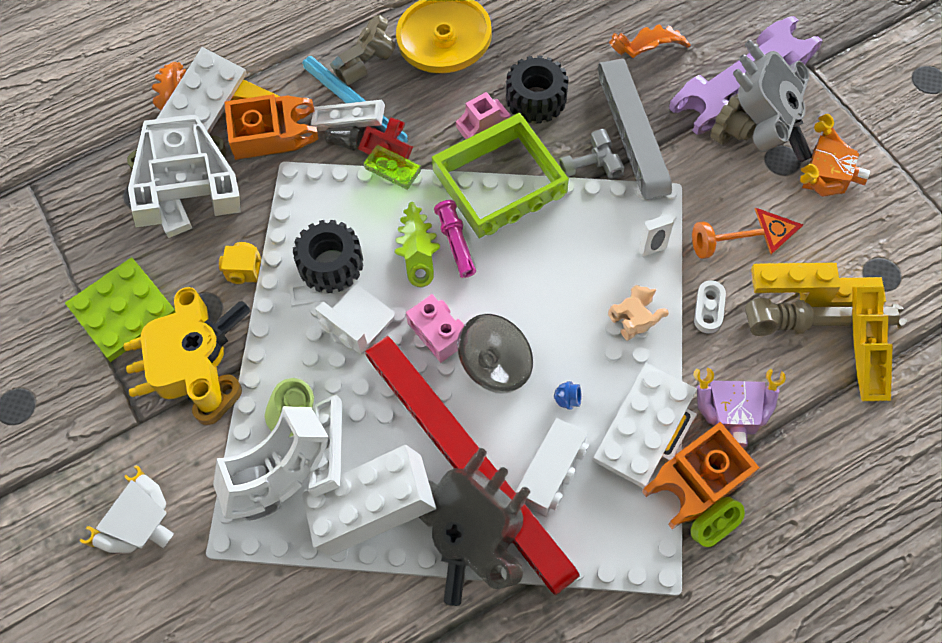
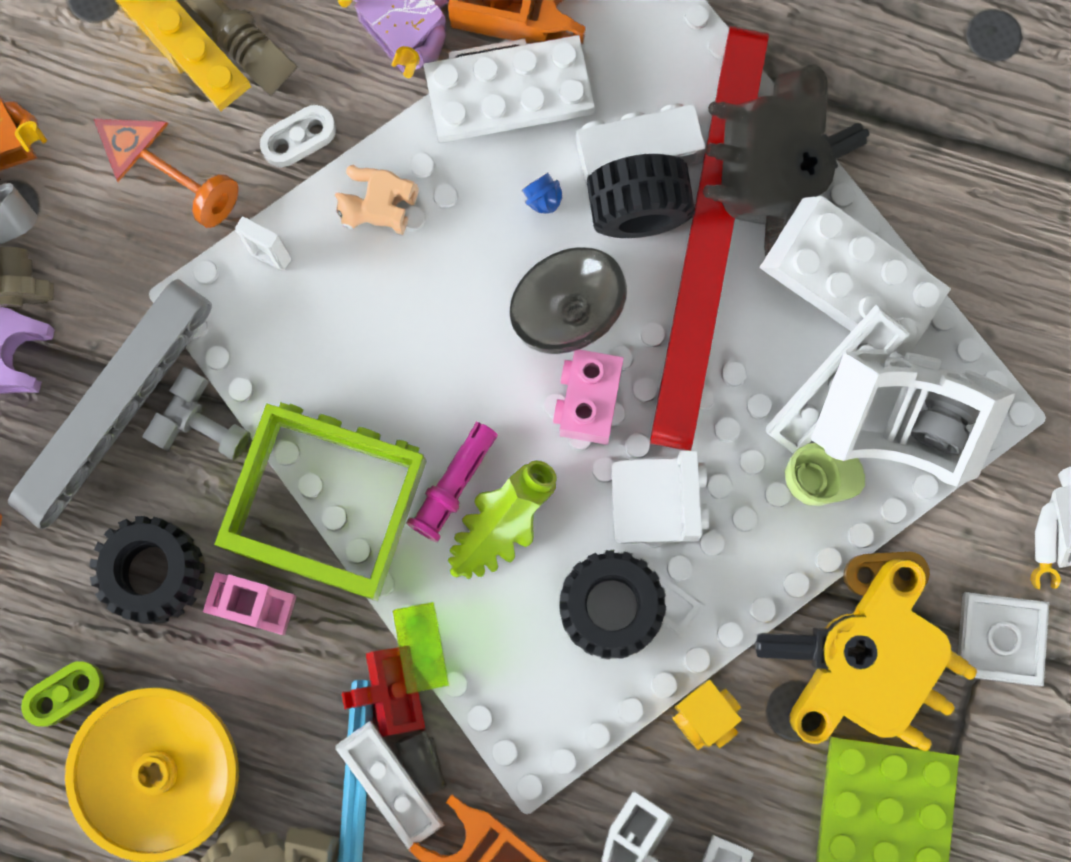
camera: 130 degrees left, 15 degrees up
(132, 430) = (1004, 638): none -> white tile
(513, 33) = (63, 692): none -> lime plate
(516, 429) = (640, 196): none -> black tyre

